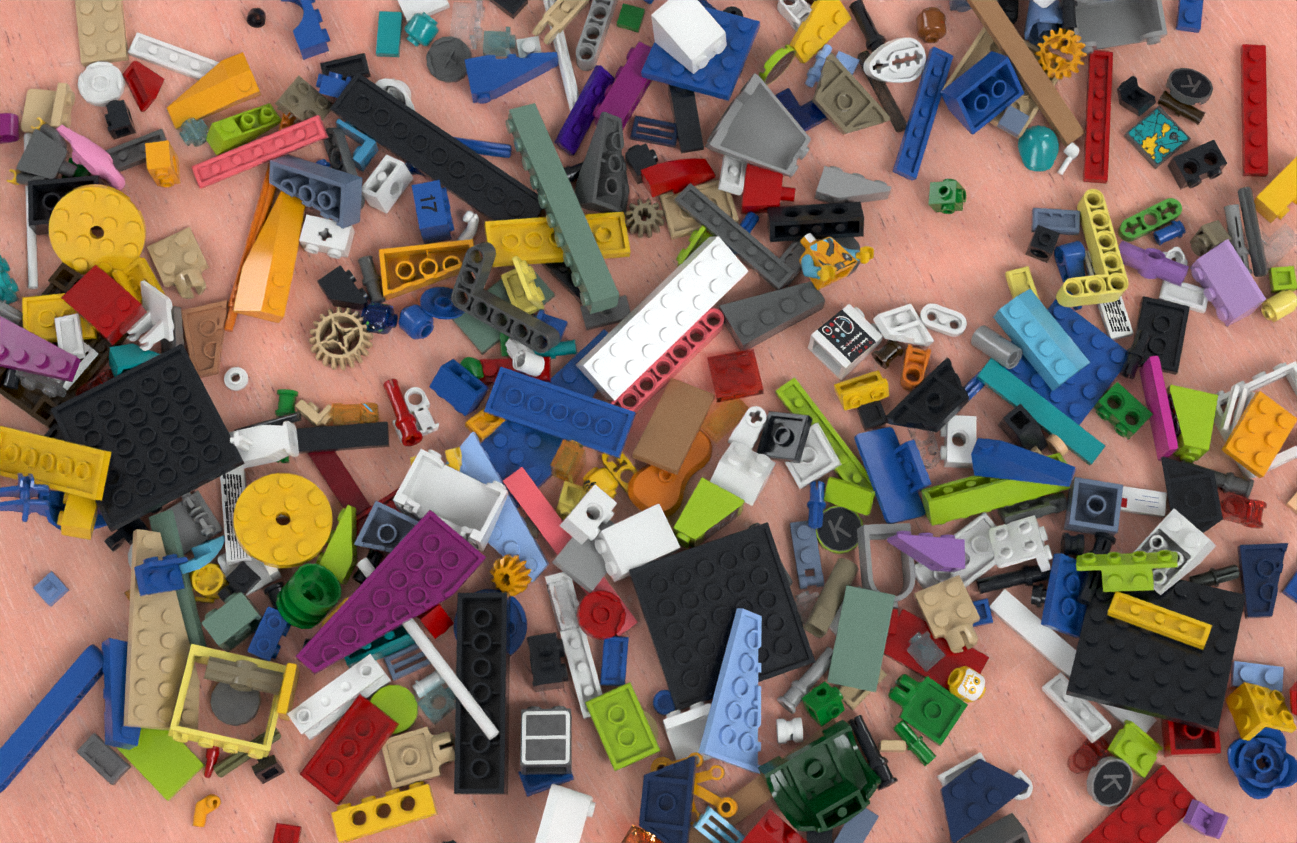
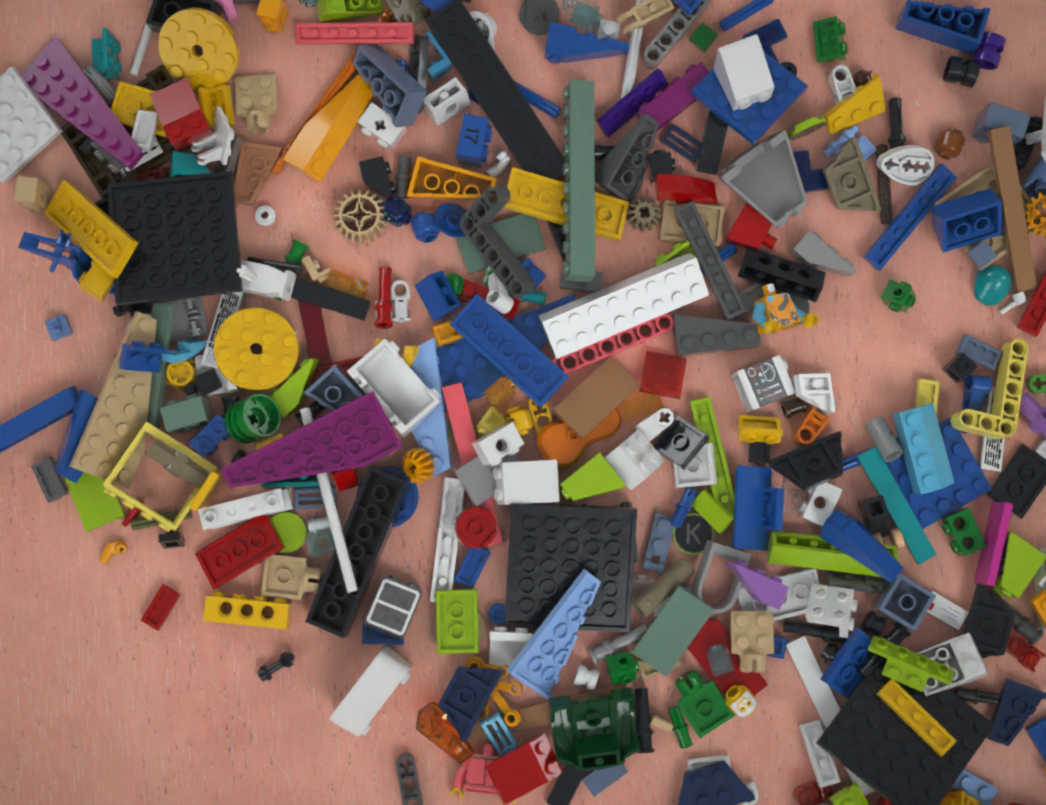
camera: 25 degrees right, 10 degrees up
(234, 706) = (163, 481): flat silver tile -> none
(522, 288) = (520, 234): light yellow bracket -> none
(546, 662) = (418, 547): black hinge -> none
(732, 175) = (729, 208): white plate -> none
(942, 320) = (850, 396): white plate -> none
(1135, 354) = (994, 491): black pin -> none

